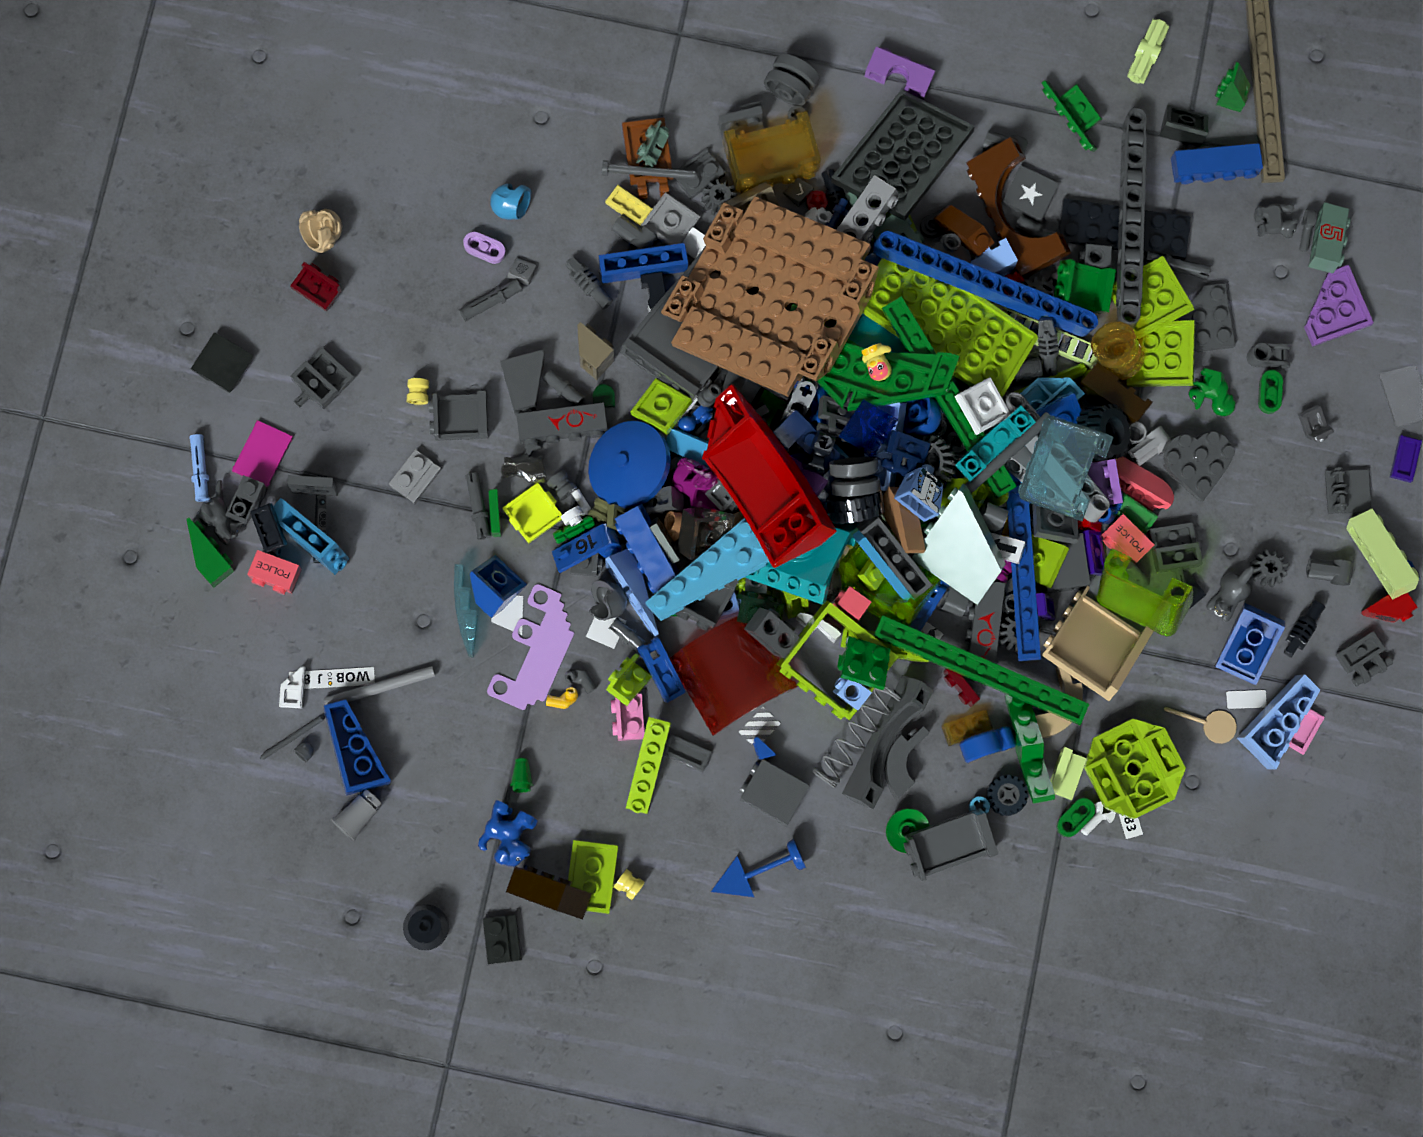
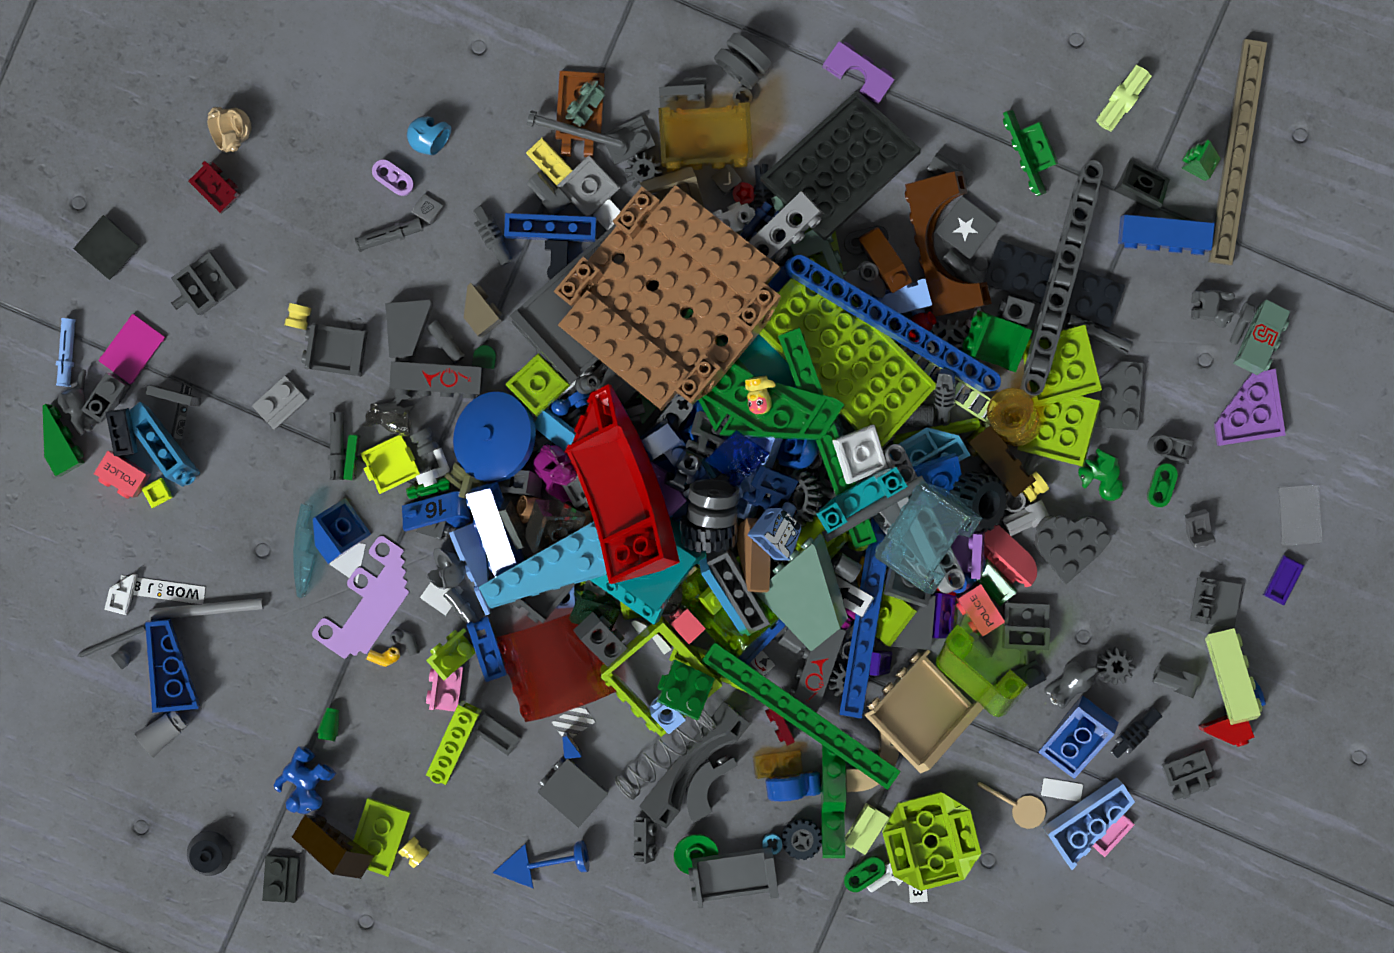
camera: 20 degrees right, 10 degrees up
(311, 585) = (157, 493): none -> neon yellow tile
(857, 835) = (645, 850): none -> dark grey hinge
(1151, 416) = (1036, 488): none -> light yellow wheel

